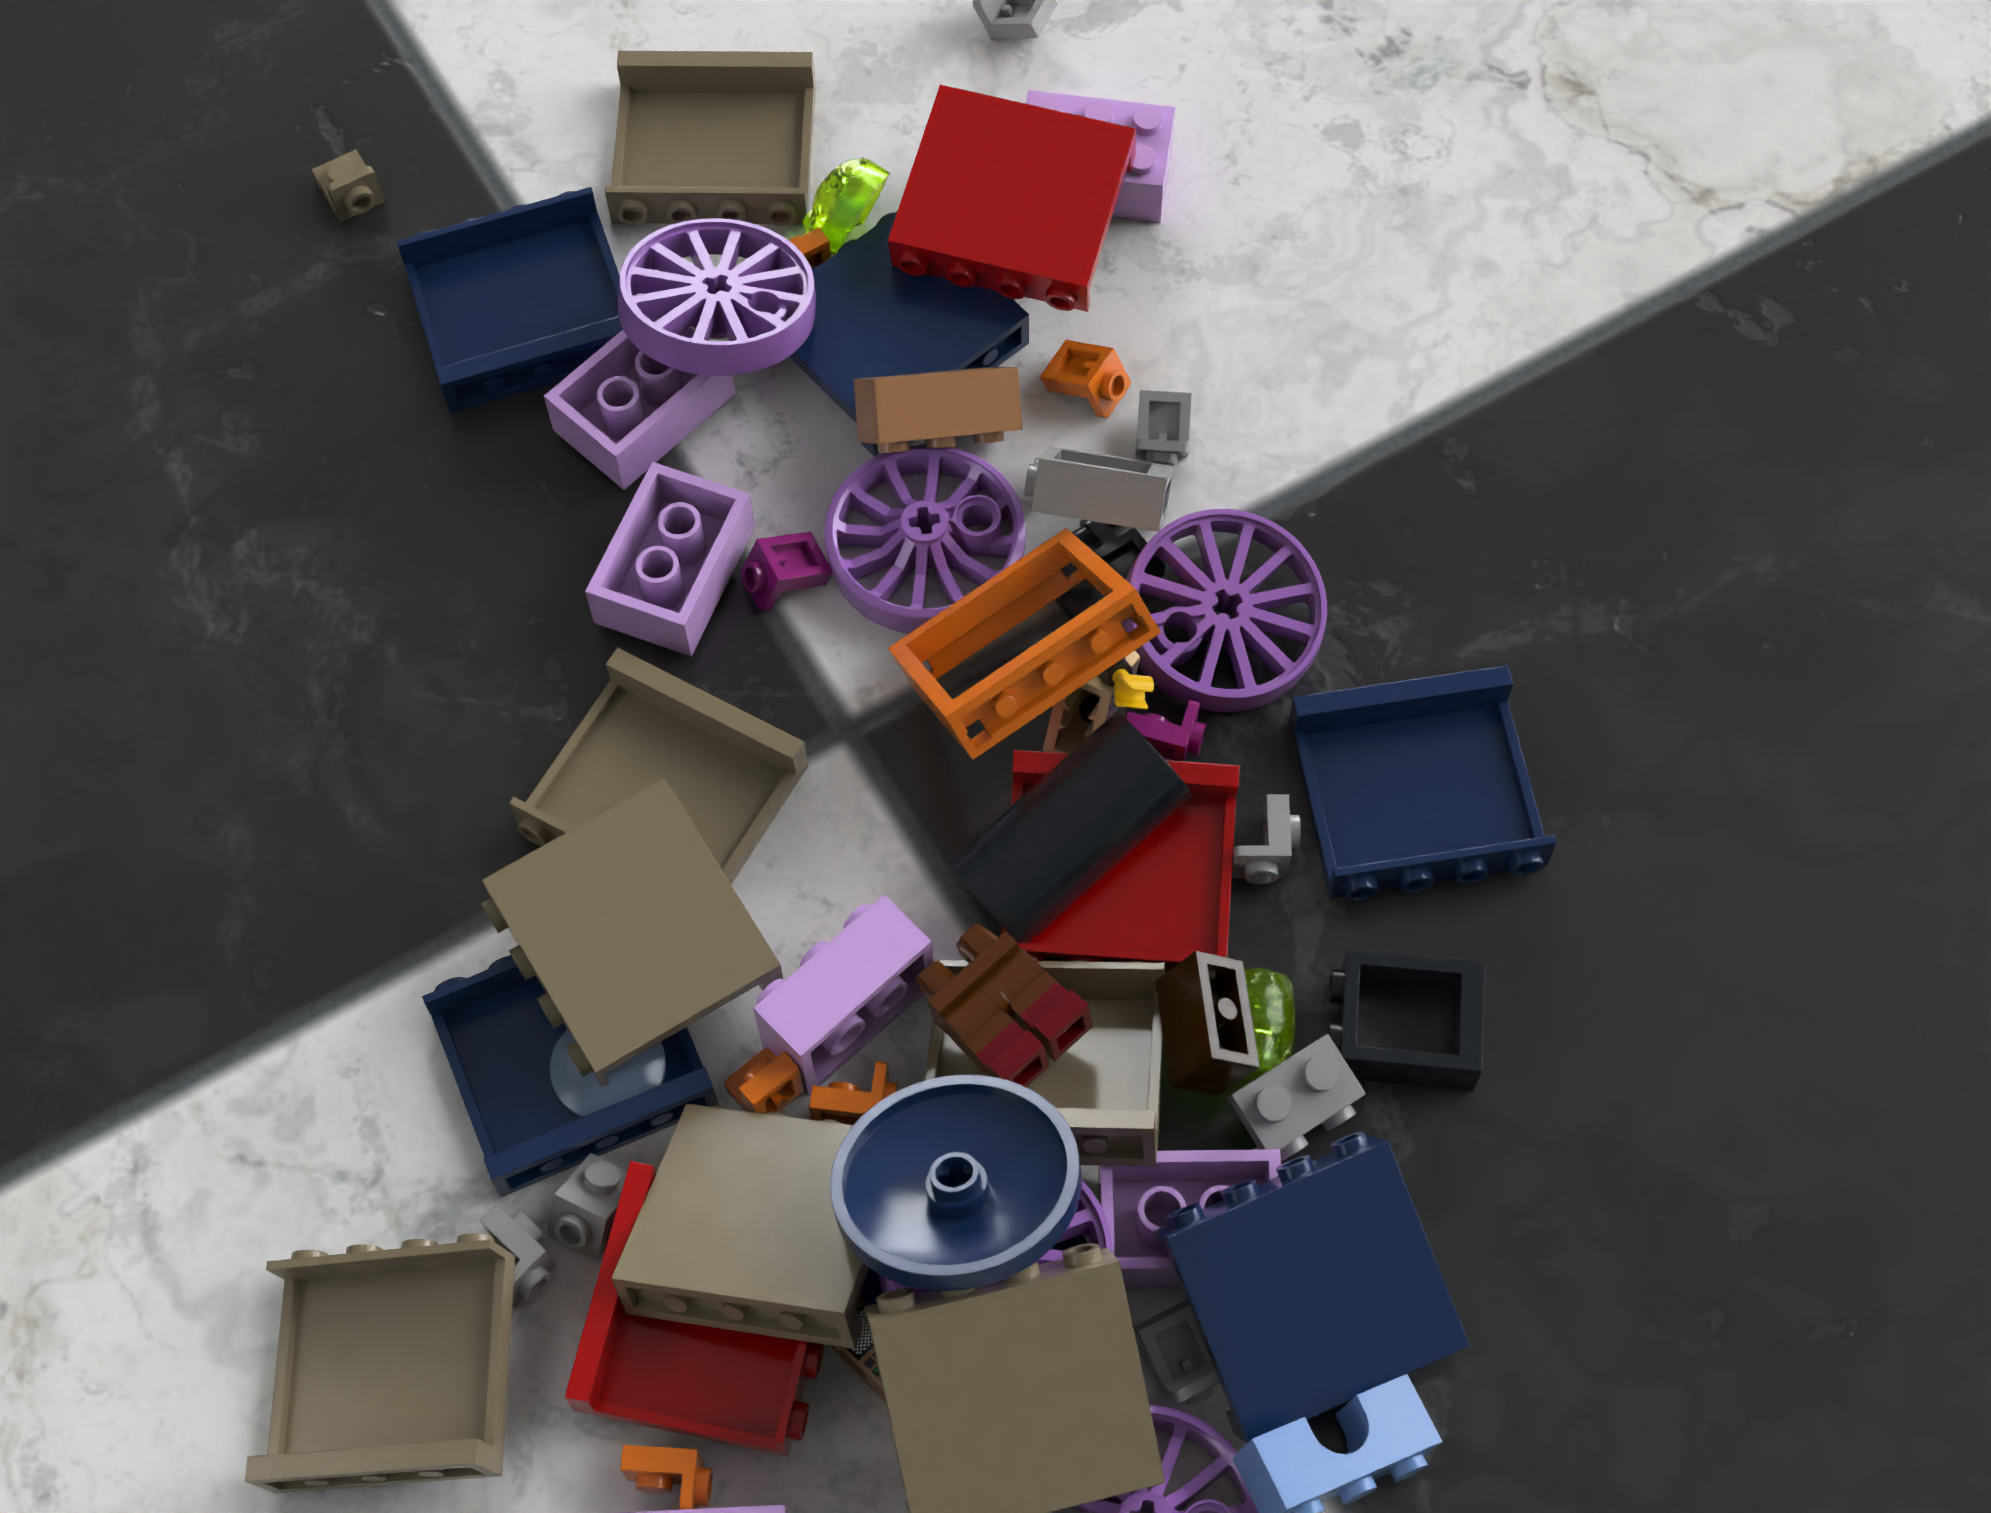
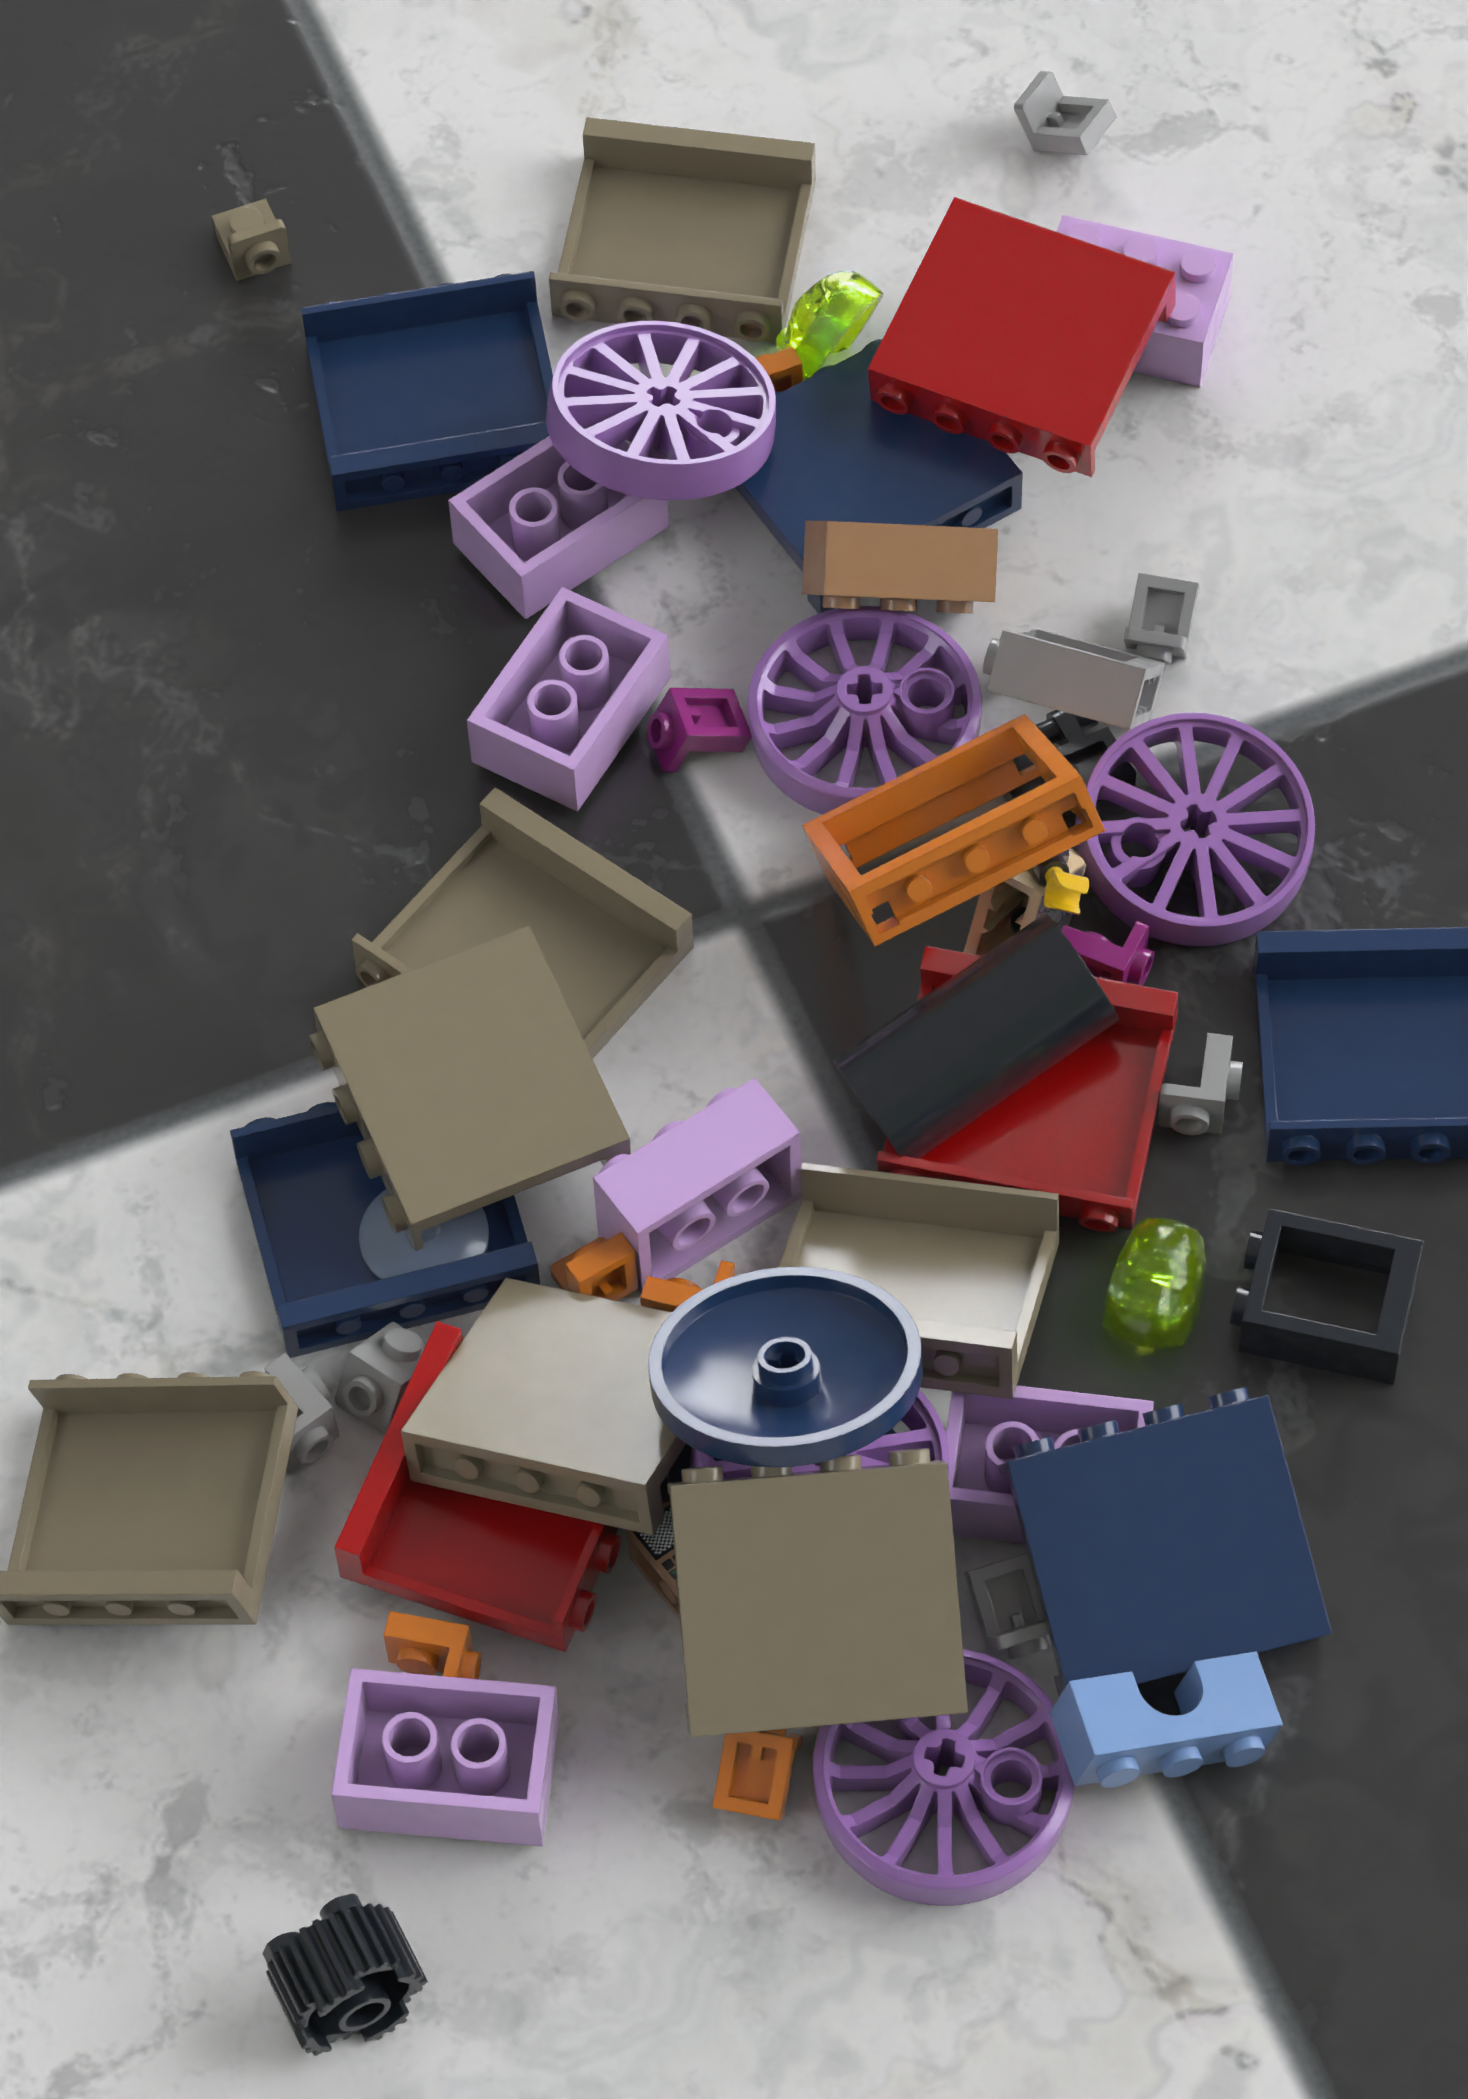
camera: 10 degrees right, 5 degrees down
(1003, 1007) = (870, 1211): reddish brown hips -> none
(1088, 373) = (1083, 548): orange bracket -> none
(1206, 1024) = (1094, 1261): dark brown brick -> none
(1298, 1096) = (1188, 1355): light grey bracket -> none

